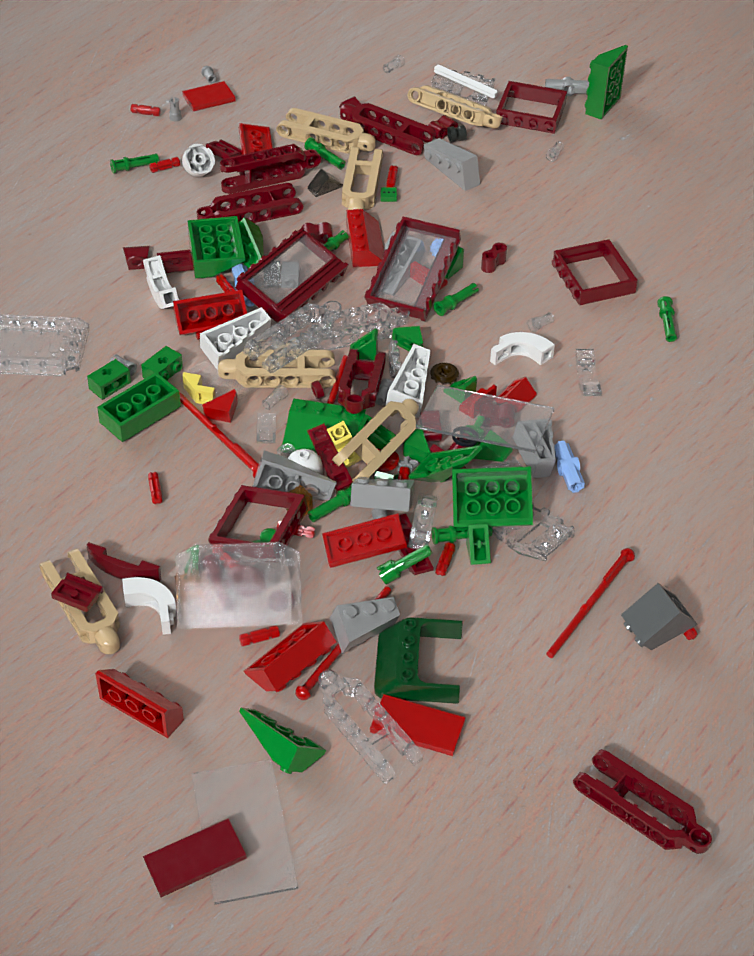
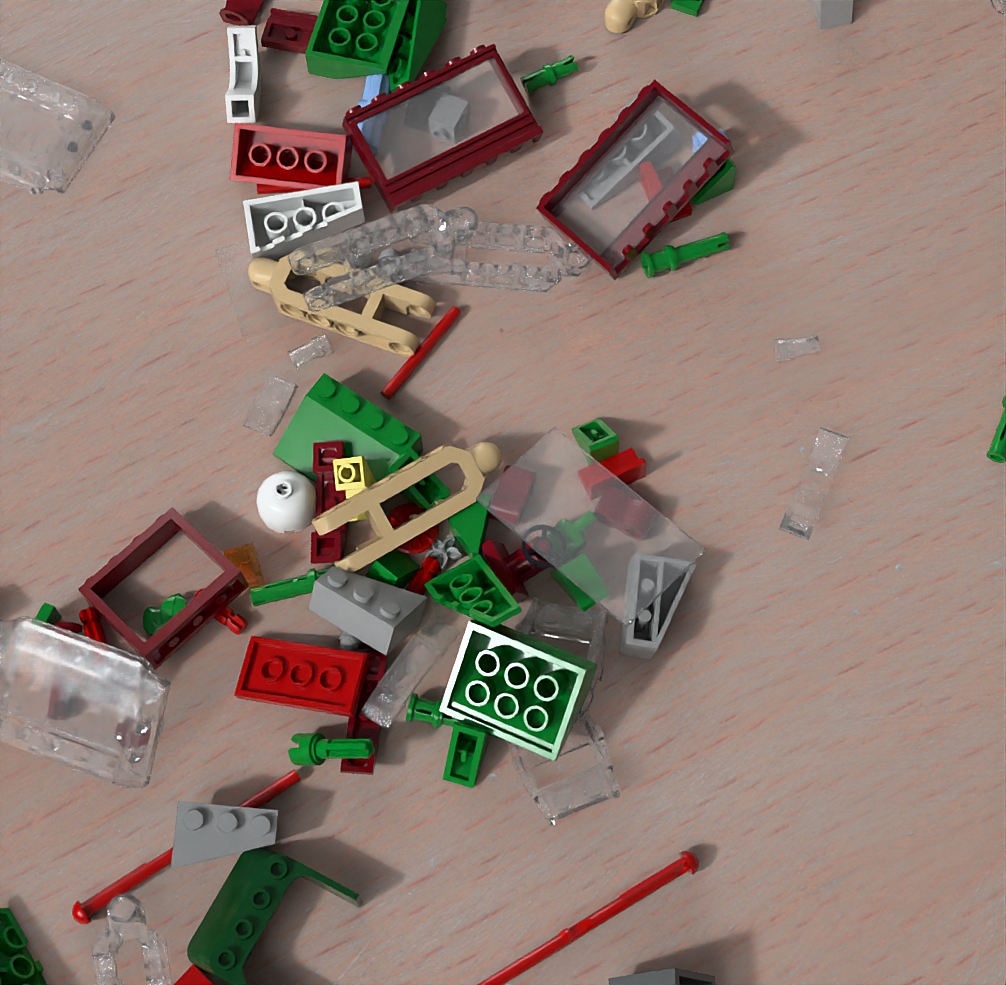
camera: 30 degrees right, 20 degrees up
(109, 379) = (89, 229): green brick -> none
(130, 365) = (126, 213): light grey pin -> none
(139, 406) = (102, 301): green brick -> none
(155, 488) = (61, 455): red axle -> none
(164, 362) = (176, 232): green brick -> none
(193, 385) = (204, 288): light yellow slope -> none
(222, 407) = (225, 343): red slope -> none
(224, 283) = (345, 99): red axle -> none
(234, 447) = (217, 485): red bar -> none
(259, 635) = (74, 783): red axle -> none
(284, 475) = (239, 510): light grey wedge -> none
(285, 450) = (274, 462): clear tile -> none
(291, 656) = (95, 842): red slope -> none
(317, 389) = (378, 360): dark red tile -> none
(320, 232) = (532, 45): dark red axle -> none
(361, 370) = (446, 345): dark red piece -> none
(364, 238) = (600, 80): red slope -> none
(367, 345) = (492, 303): green slope -> none
(383, 391) = (482, 396): light grey pin -> none
(394, 362) = (520, 347): clear slope -> none
(407, 337) = (569, 311): green slope -> none
(411, 378) = (522, 399): white wedge -> none
(445, 559) = (408, 754): red axle -> none
(446, 368) = (578, 390): dark brown gear -> none
(493, 257) = (788, 190): dark red axle -> none
(519, 390) = (679, 483): red panel -> none
(522, 344) = (738, 384): white arch -> none
(568, 466) = (685, 655): light blue piece -> none
(588, 251) = (939, 230): dark red window -> none

